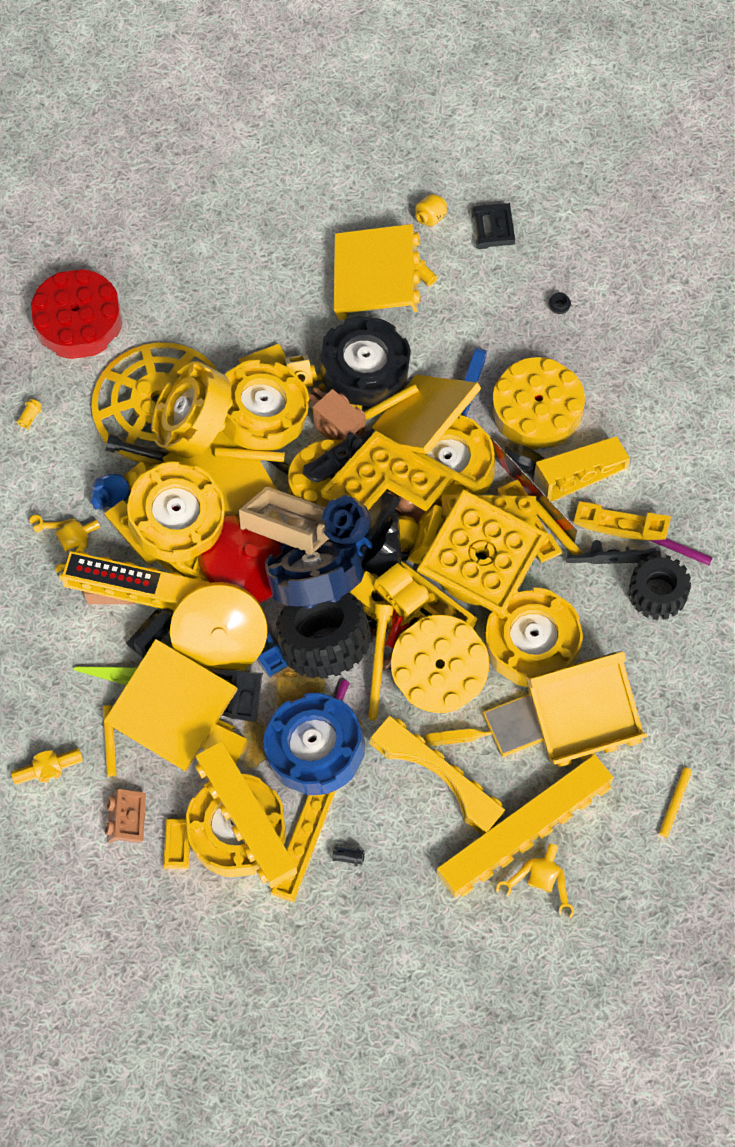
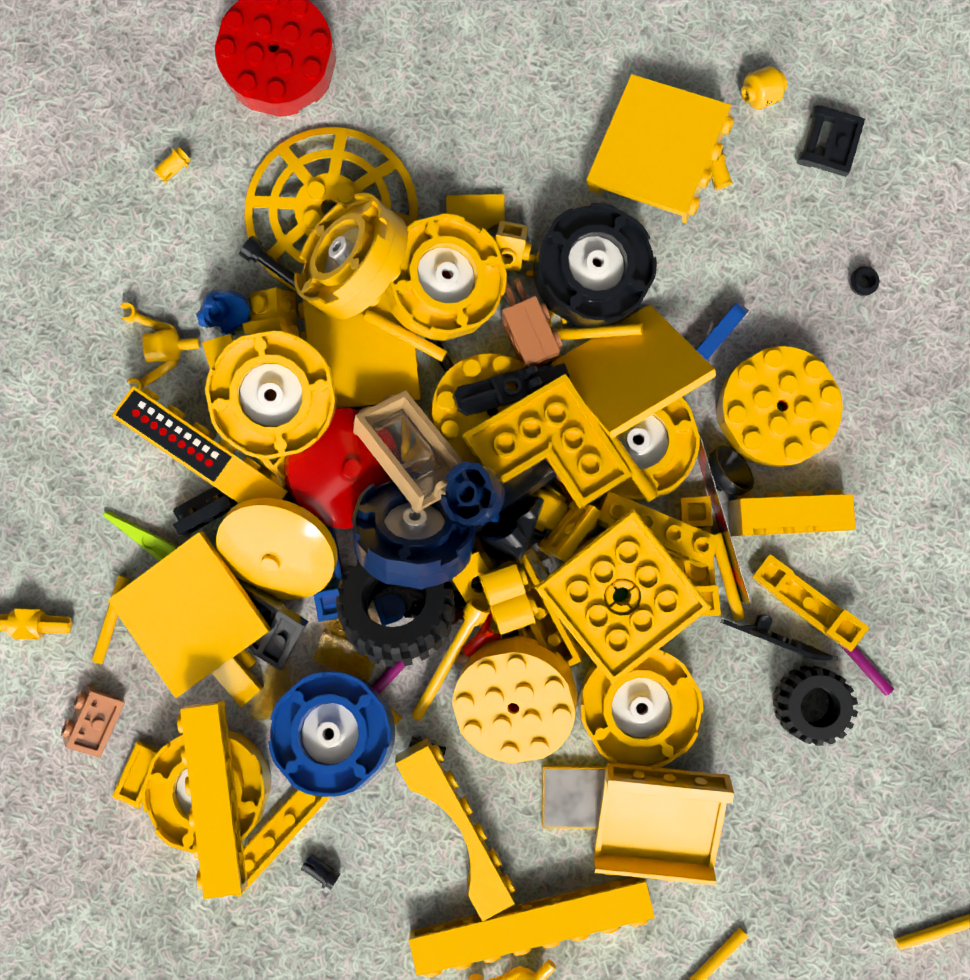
camera: 20 degrees right, 20 degrees up
(453, 737) = (497, 782): yellow piece -> none

